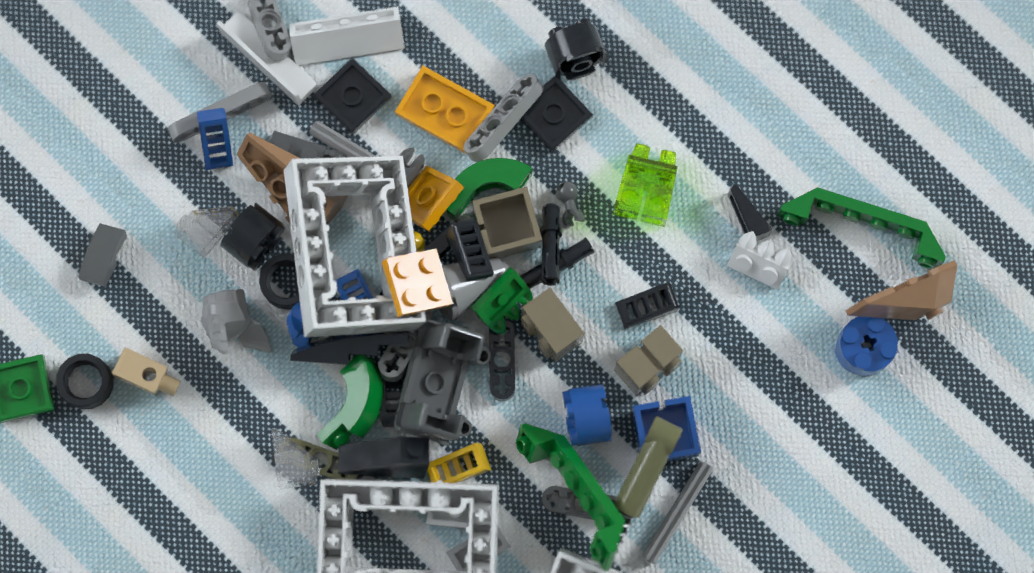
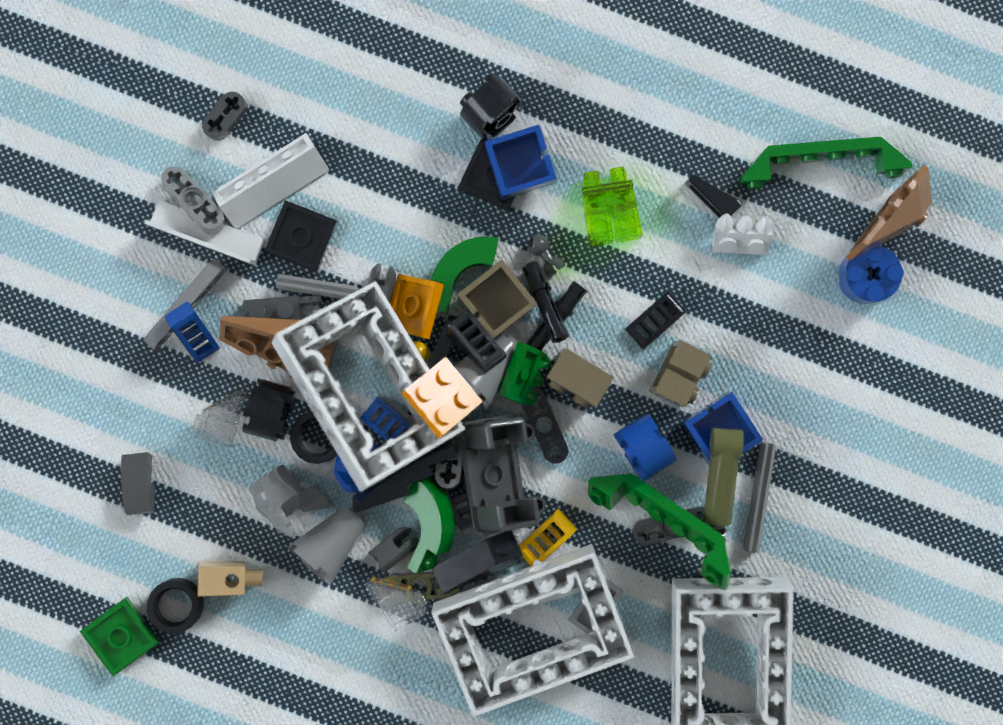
camera: 25 degrees left, 10 degrees up
(253, 382) = (329, 543): none -> light grey cone
(311, 414) = (392, 550): none -> dark grey piece
(443, 108) = (392, 214): light orange plate -> none
(483, 140) = (463, 163): light grey beam -> none
(581, 108) = (518, 162): none -> blue piece

